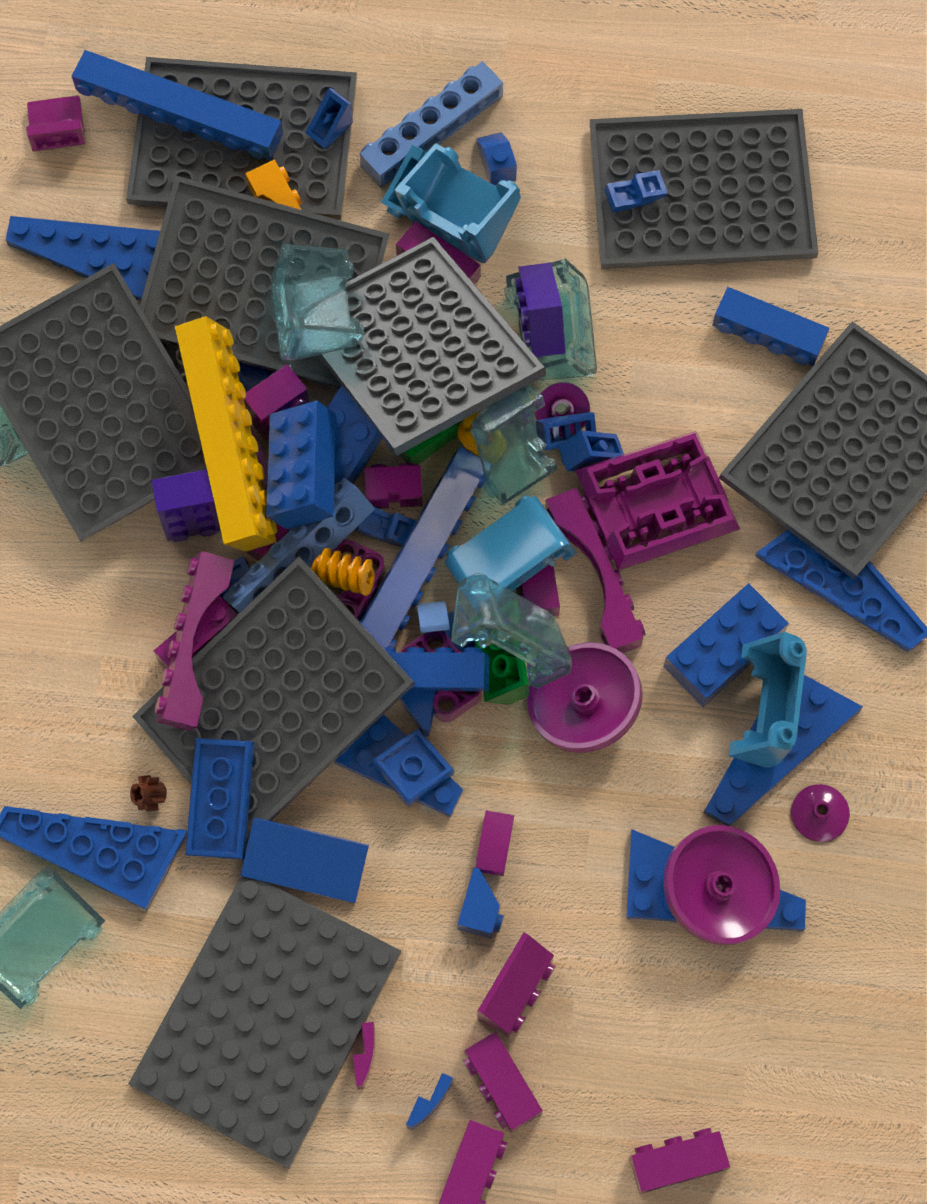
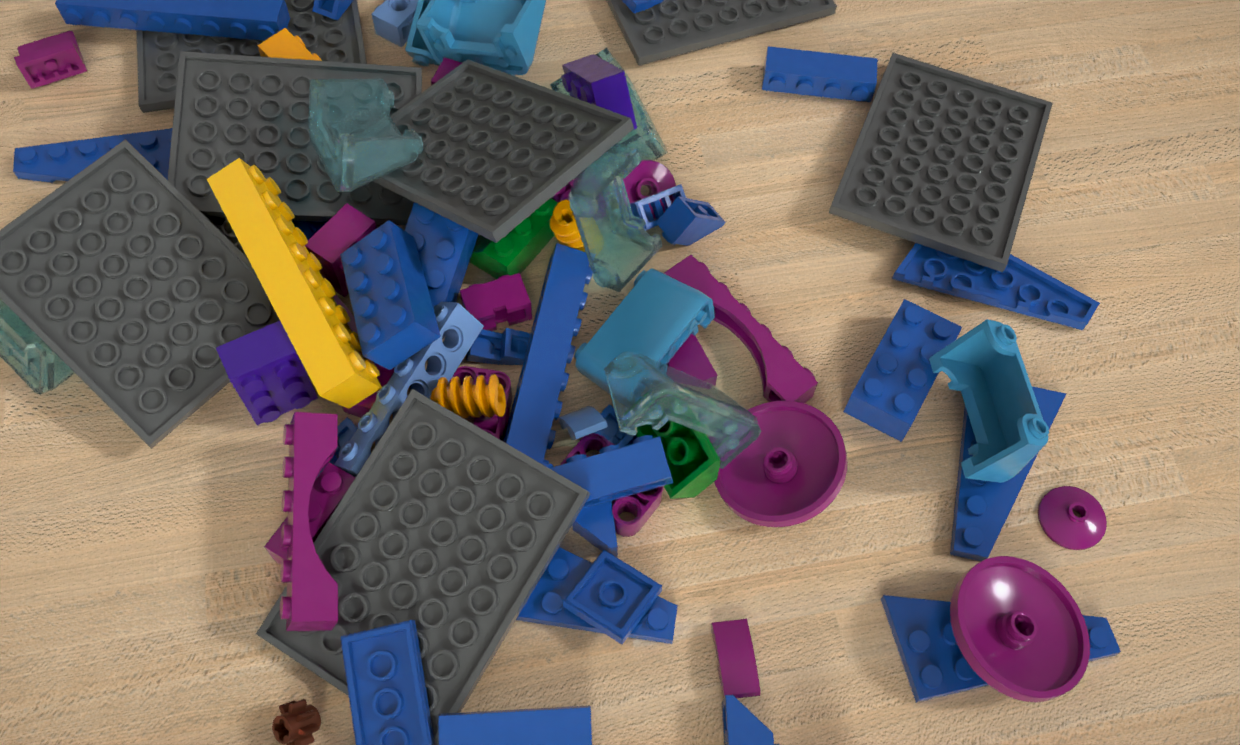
camera: 20 degrees left, 10 degrees down
(656, 501) = (776, 250): magenta piece -> none

